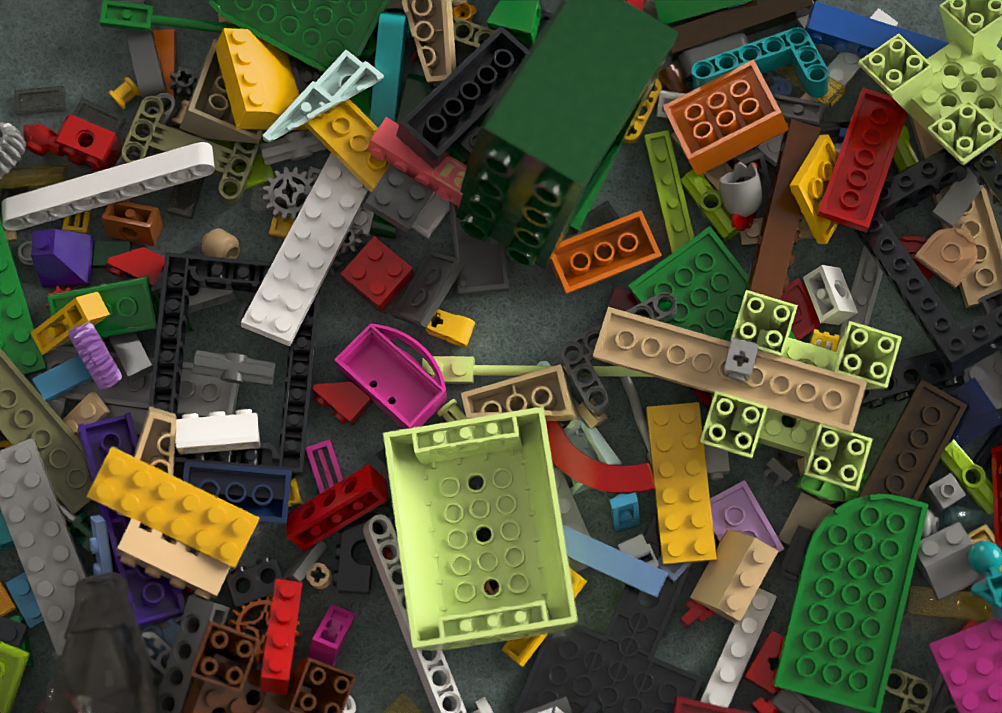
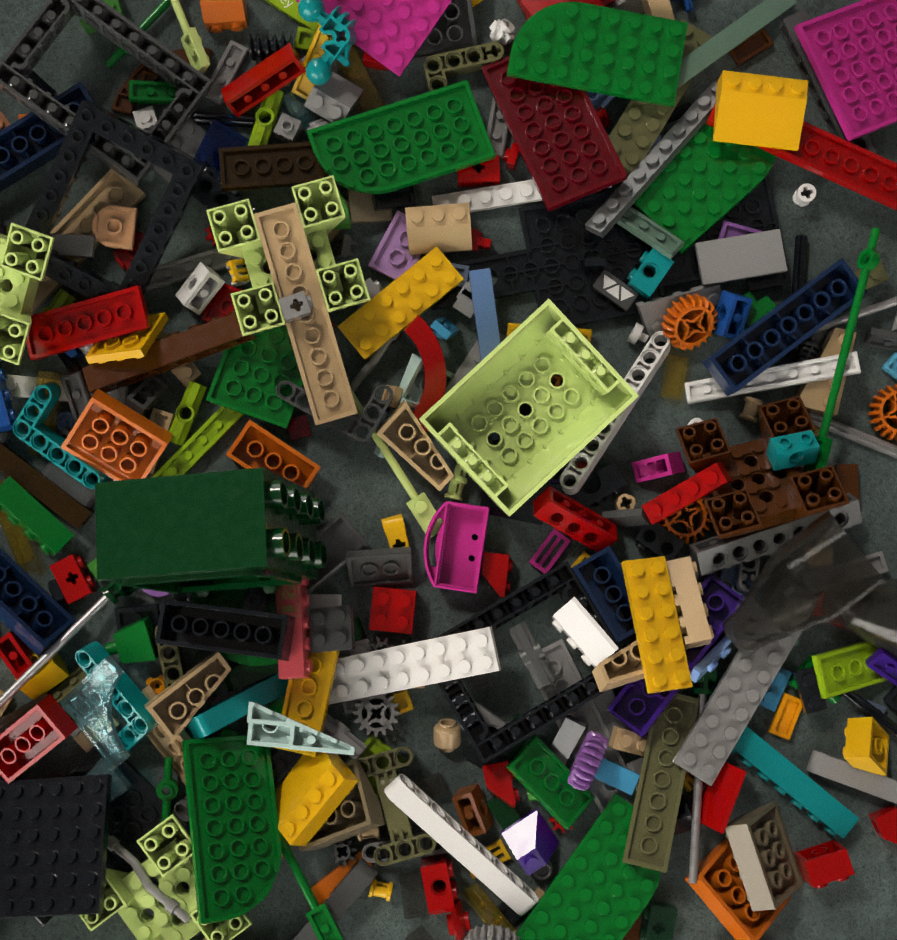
camera: 130 degrees left, 10 degrees up
(78, 312) = (579, 799): yellow slope -> none
(741, 198) = (171, 388): light grey piece -> none

